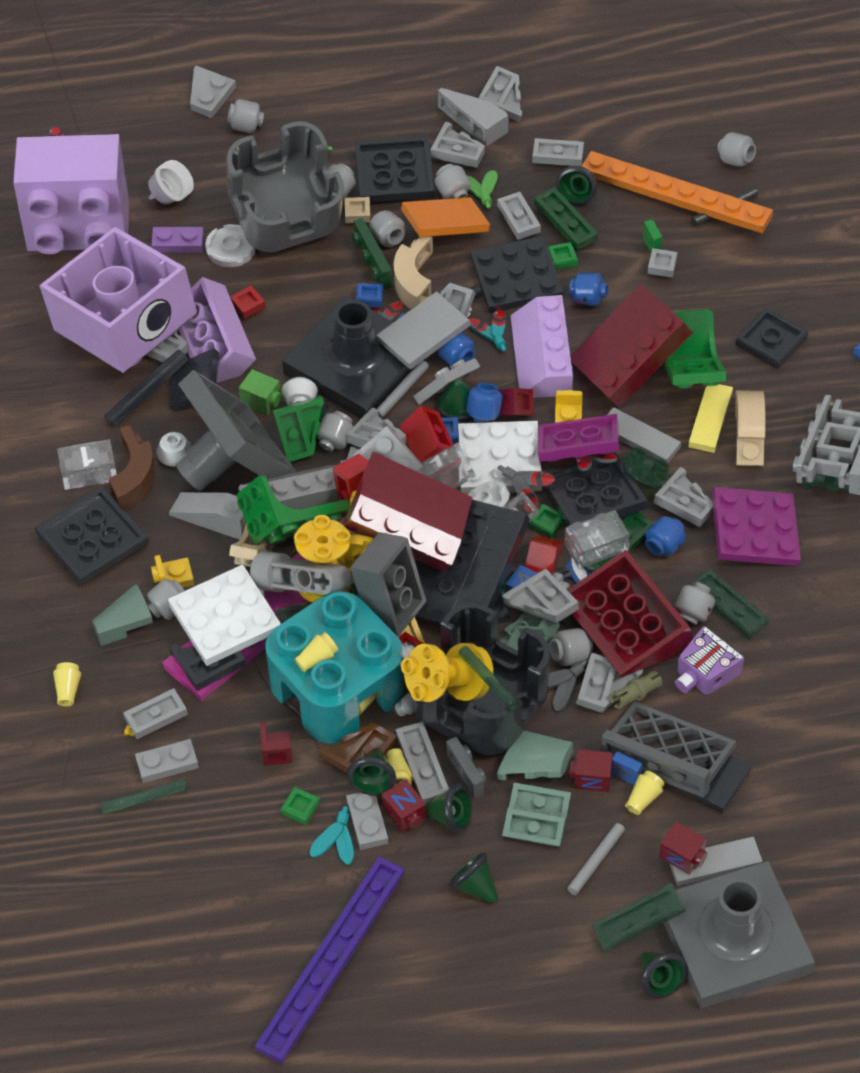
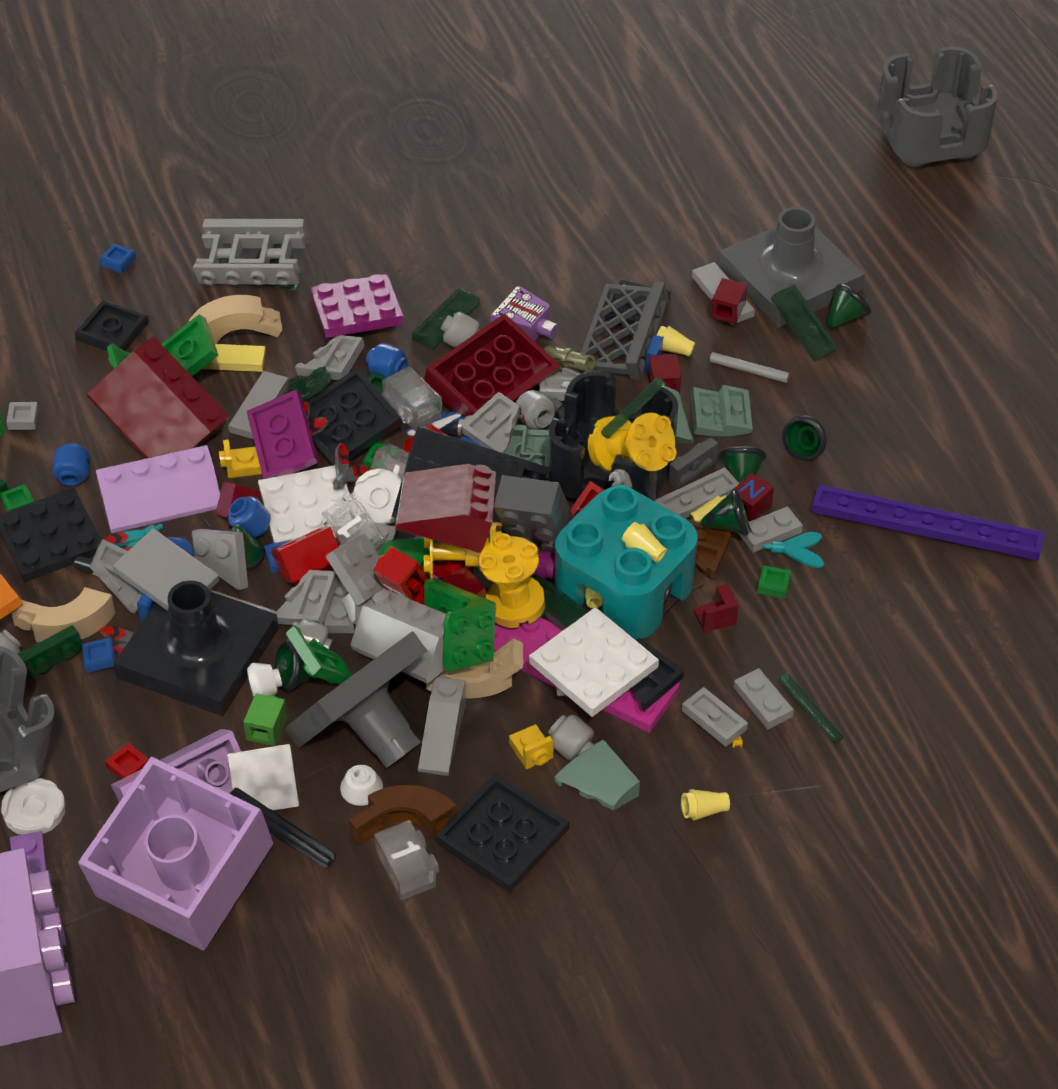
camera: 105 degrees left, 5 degrees down
(280, 572) = (538, 596): light grey beam -> none

